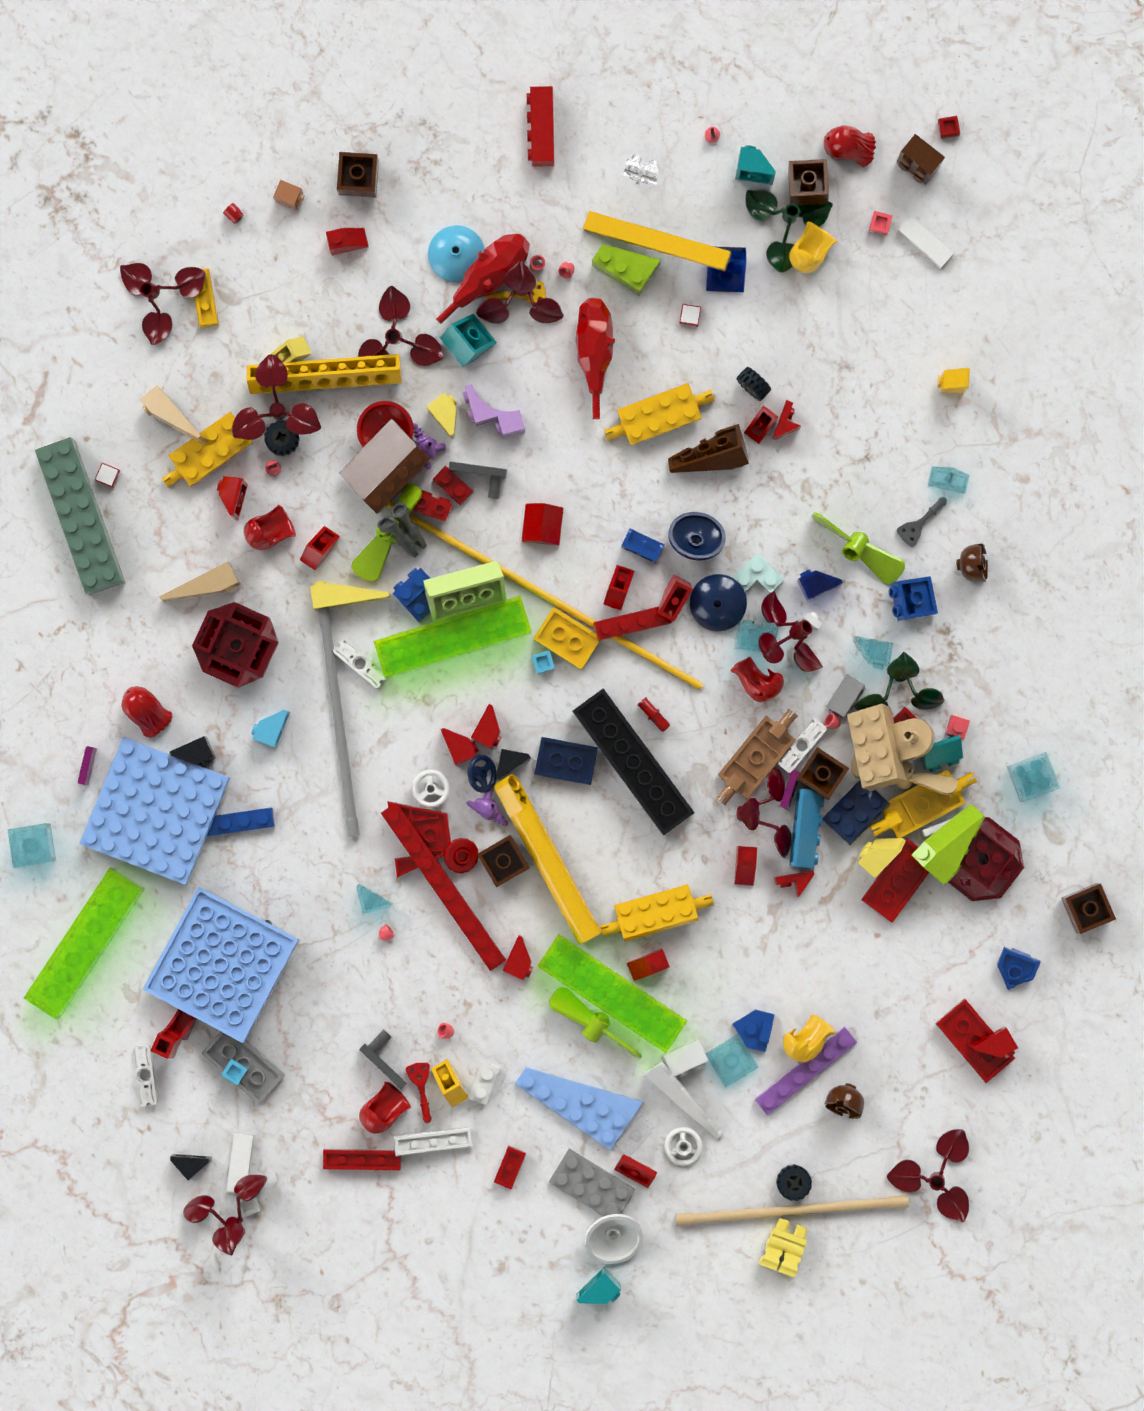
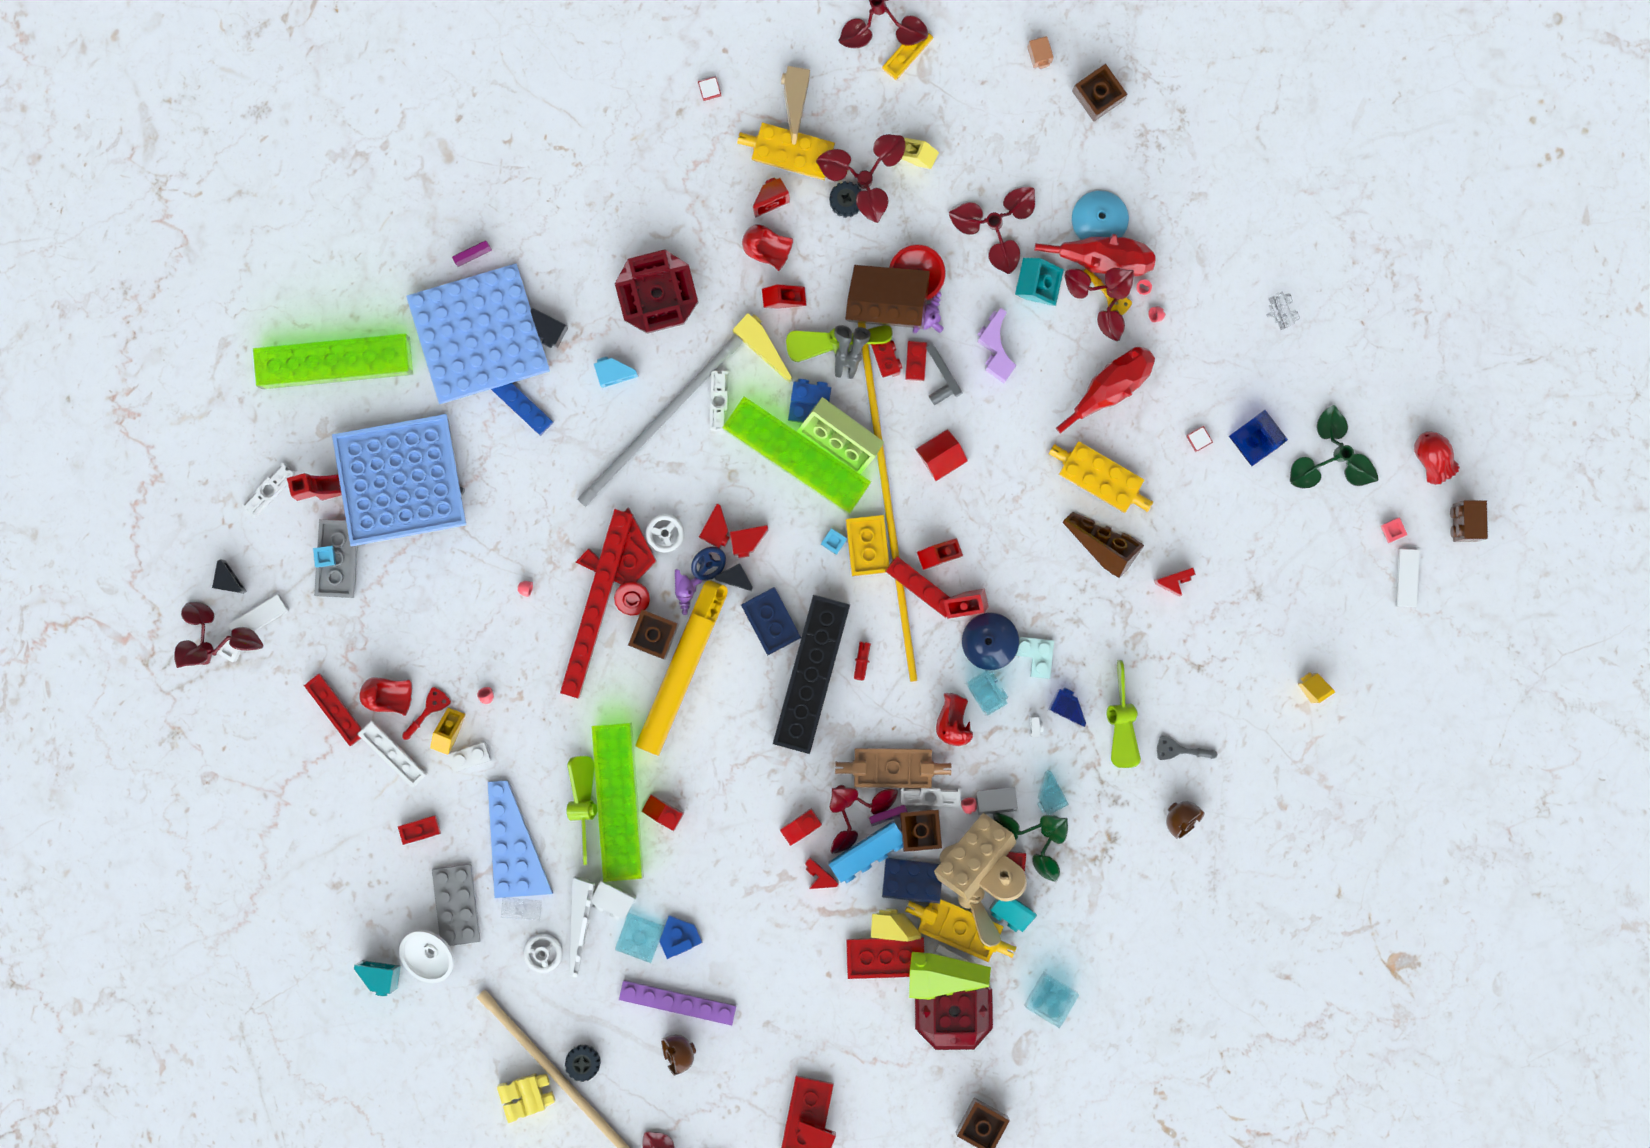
camera: 50 degrees right, 0 degrees up
(31, 845) = (376, 260): clear light blue brick -> none
(80, 516) = (660, 93): sand green brick -> none
(145, 711) = (549, 264): red piece -> none
(215, 581) = (691, 236): tan slope -> none
(233, 213) = (991, 21): red hose -> none
(274, 471) = (815, 214): coral hinge -> none
(333, 374) = (928, 199): yellow brick -> none
(346, 240) = (1041, 125): red slope -> none
(370, 900) = (541, 556): clear light blue slope -> none
(371, 1053) = (429, 650): dark grey piece -> none
(445, 413) = (967, 309): light yellow slope -> none
(519, 960) = (586, 708): red slope -> none
(542, 126) = (1254, 204): red brick -> none
(626, 267) = (1196, 358): lime wedge -> none
(635, 1170) = (493, 930): red plate -> none
(642, 545) = (987, 546): blue hinge -> none
(656, 913) = (707, 786): yellow plate -> none
(657, 240) = (1236, 366): yellow tile -> none
(698, 529) = (1036, 581): dark blue dish -> none
(708, 137) = (1352, 340): coral hinge -> none
(753, 383) = (1185, 531): black wheel -> none
(754, 166) = (1357, 395): teal slope -> none
(761, 424) = (1158, 563): red slope -> none
(769, 647) = (984, 713): dark red plant -> none
(808, 182) = (1379, 447): reddish brown brick -> none
(809, 1041) = (702, 987): yellow piece -> none
(811, 249) = (1328, 491): yellow piece -> none
(913, 598) = (1117, 792): blue plate -> none
(948, 479) = (1234, 745): clear light blue slope -> none
(949, 127) = (1514, 523): red tile -> none
(957, 726) = (1043, 908): coral plate -> none
(1016, 967) = (891, 1105): blue plate -> none

